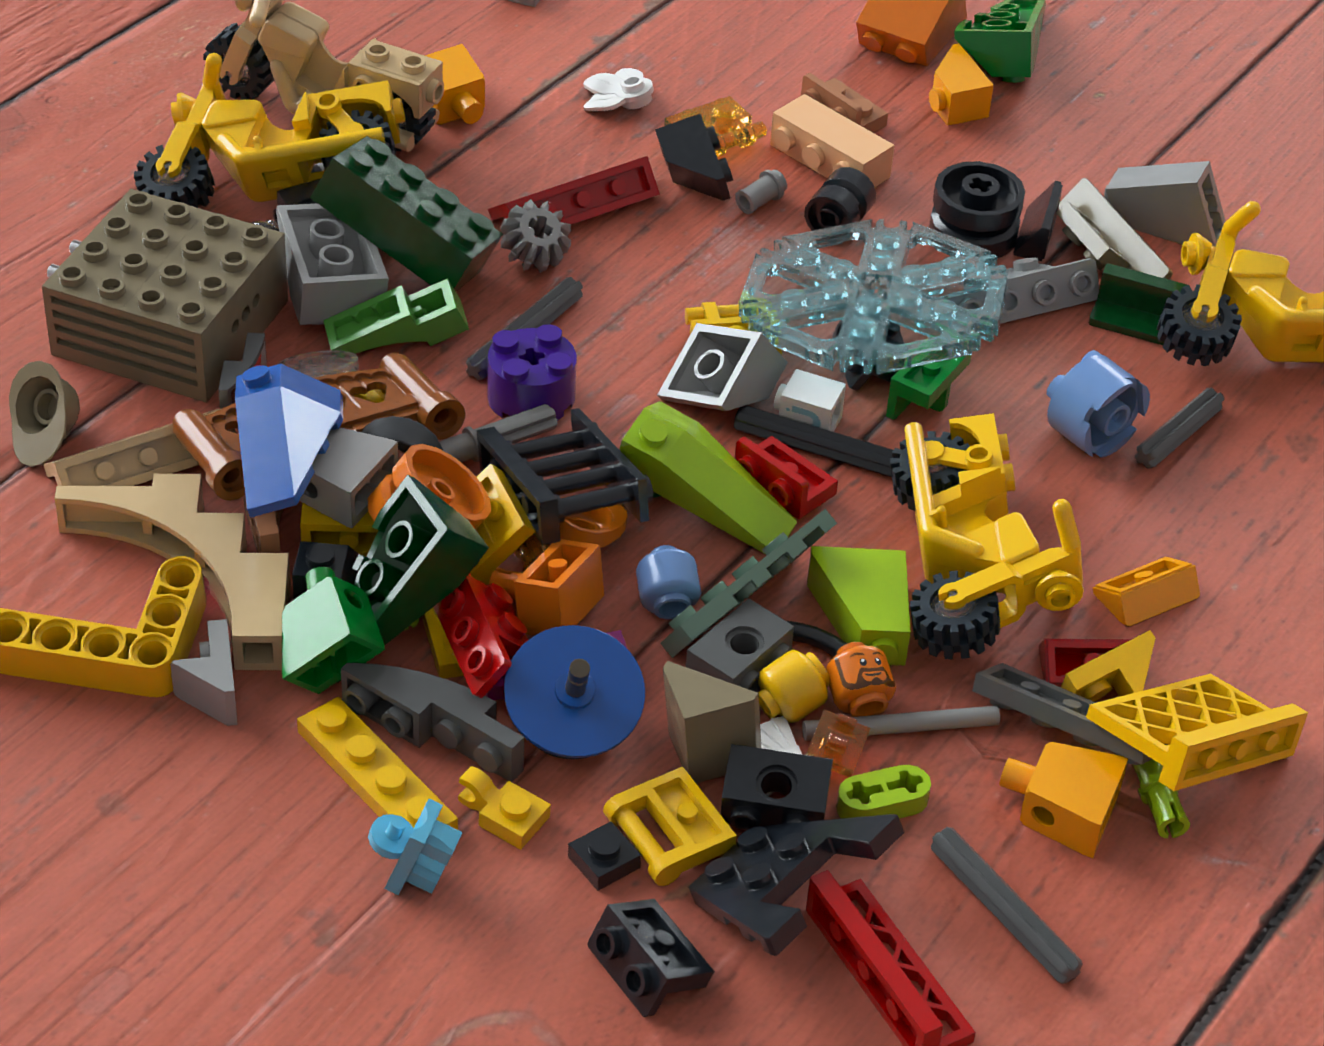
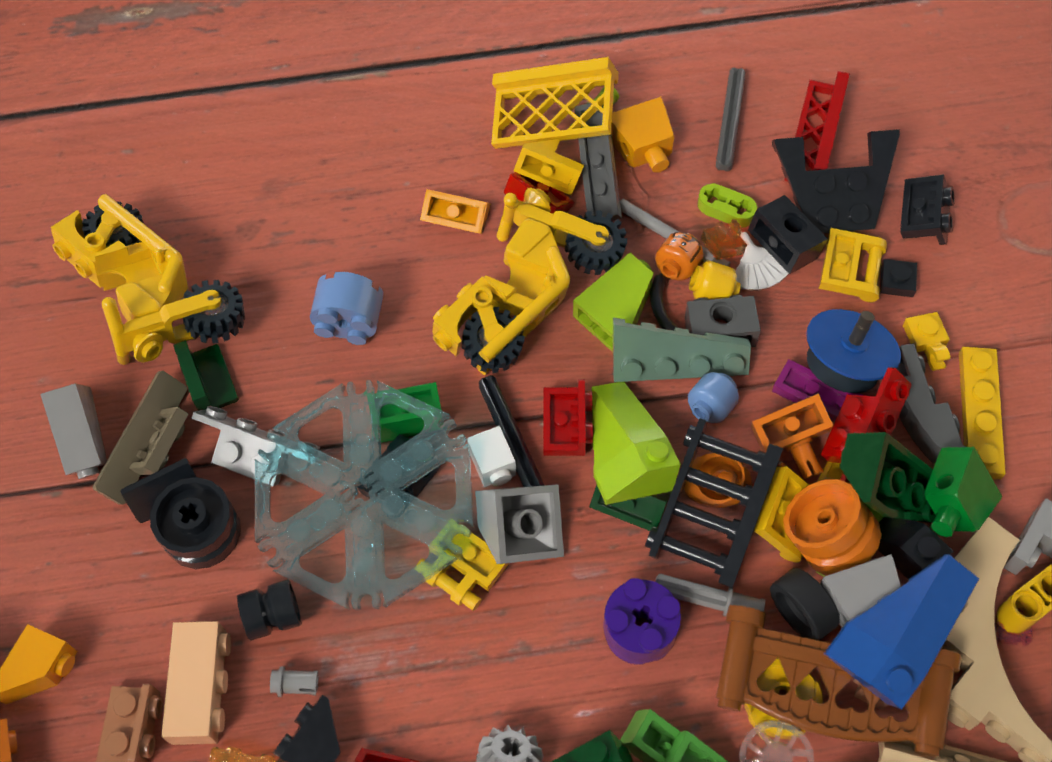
camera: 130 degrees left, 20 degrees up
(420, 849) = (1013, 326): medium azure hips -> none
(539, 314) = (591, 687): dark grey axle -> none
(707, 718) = (794, 276): dark tan slope -> none
(1179, 428) = (290, 282): dark grey axle -> none

